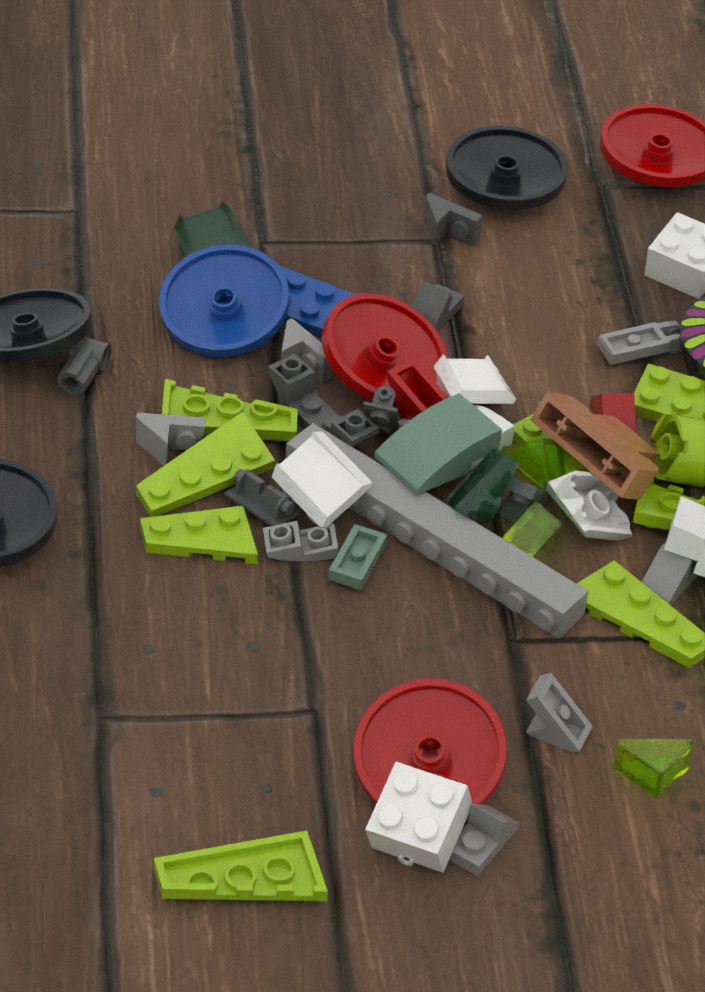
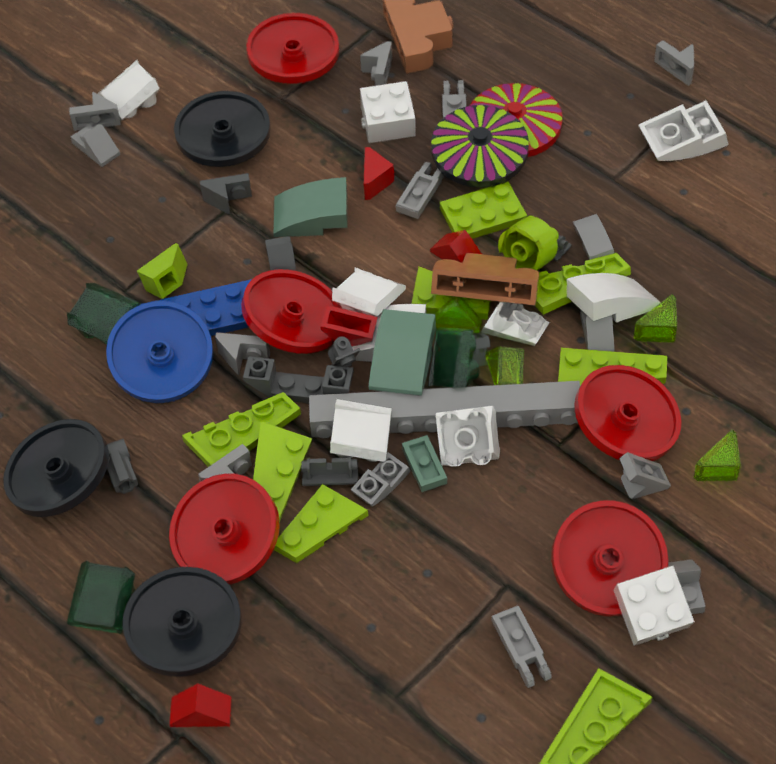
camera: 35 degrees left, 10 degrees up
(109, 470) = (225, 527): none -> red dish
(262, 759) = (520, 644): none -> light grey hinge
(312, 245) = (164, 272): none -> lime slope
(378, 111) = (96, 144): none -> light grey slope
(404, 87) = (101, 112): none -> light grey slope
(423, 561) = (468, 436): none -> white slope
(461, 89) = (131, 91): none -> white slope
(515, 287) = (311, 208): none -> sand green slope
(605, 652) = (627, 412): none -> red dish
(609, 299) = (377, 173): none -> red slope

